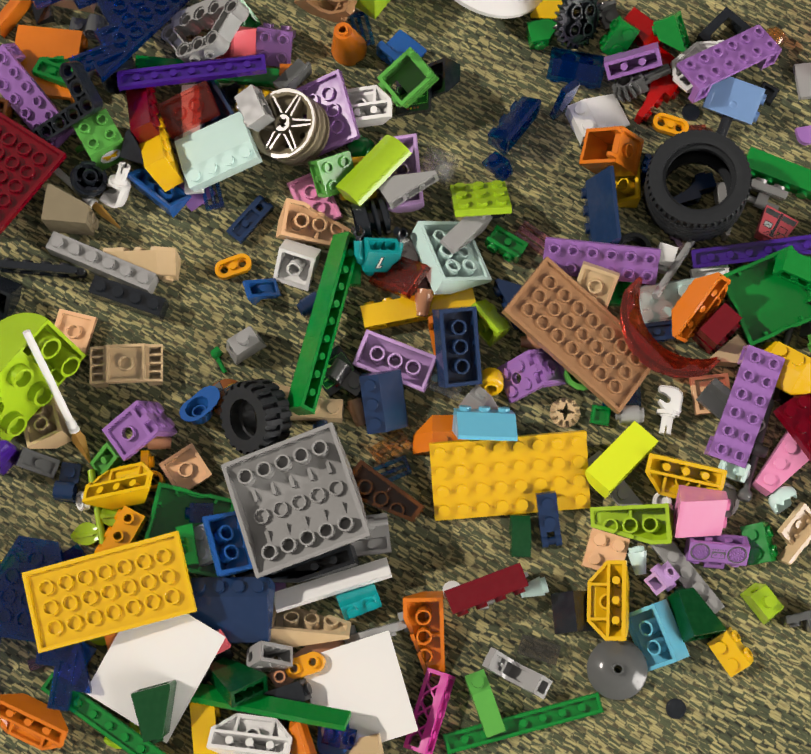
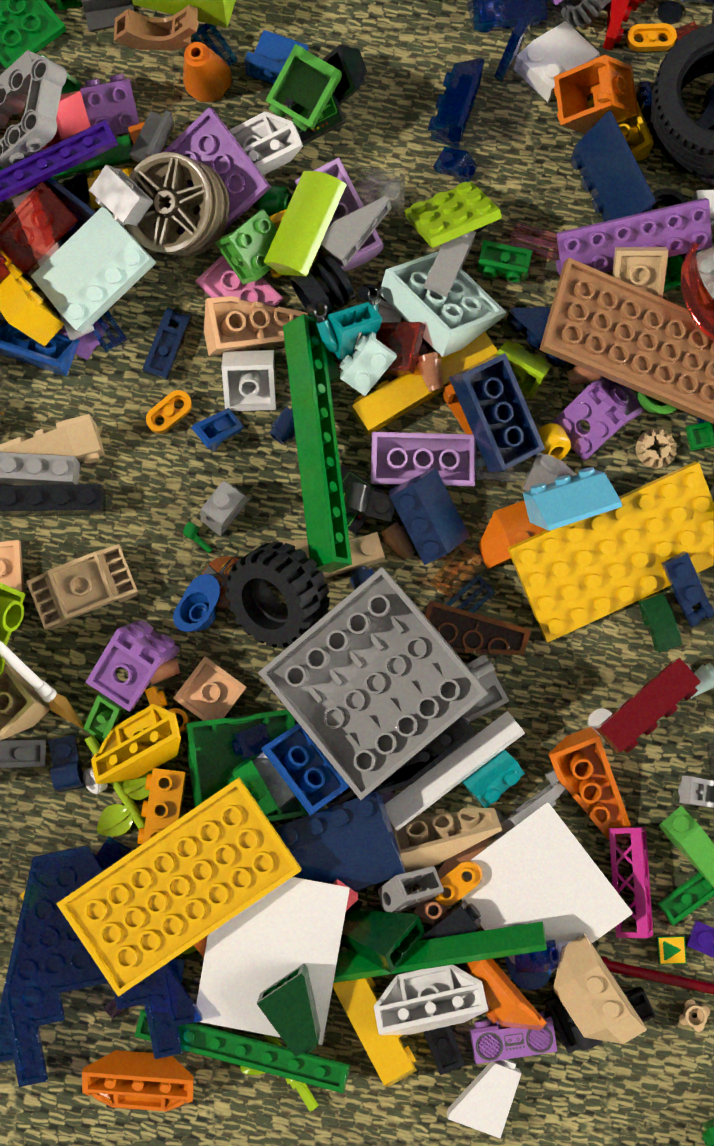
camera: 20 degrees left, 5 degrees up
(379, 281) = (366, 363): none -> light aqua bracket

